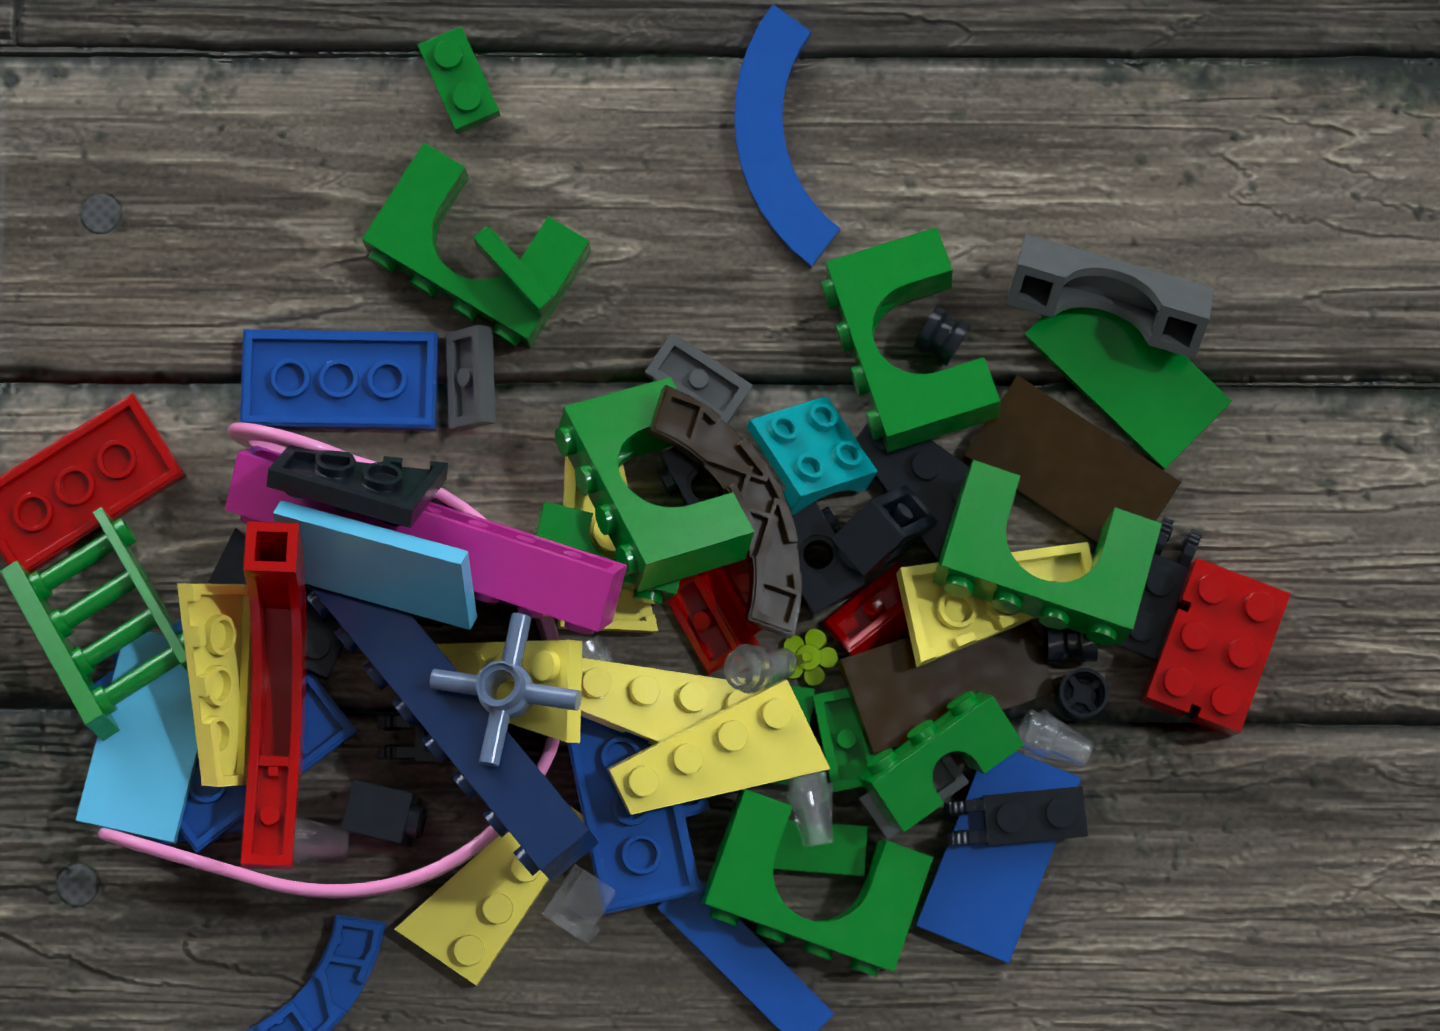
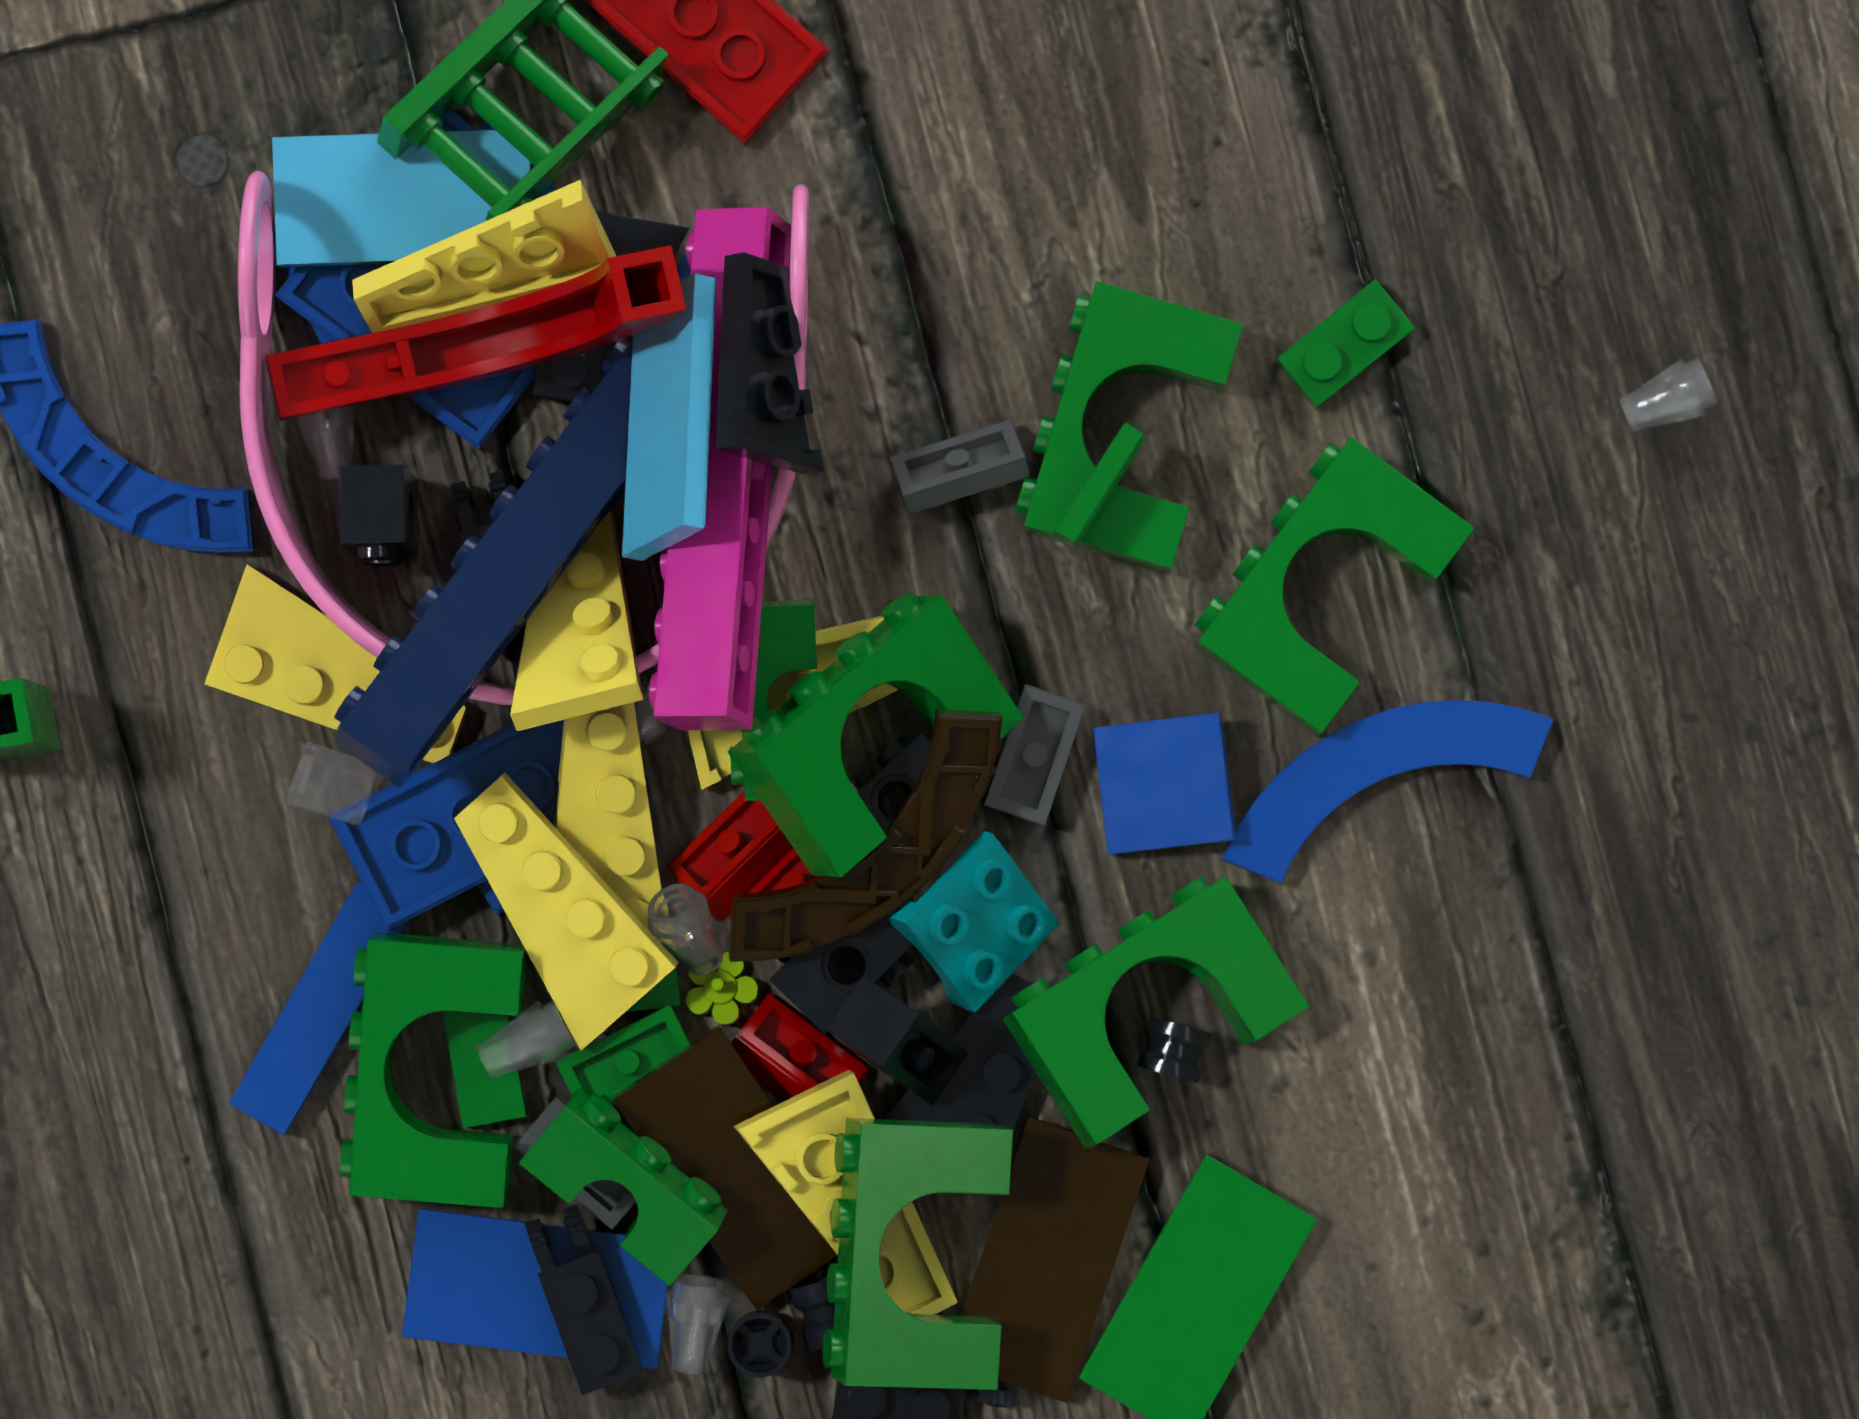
camera: 75 degrees right, 5 degrees up
(340, 379) = (916, 303): blue tile -> none
(518, 702) = (550, 645): sand blue bar -> none
(648, 197) = (1352, 497): none -> green arch
(745, 291) = (1164, 783): none -> blue tile
(1162, 307) = (1280, 1324): dark grey arch -> none

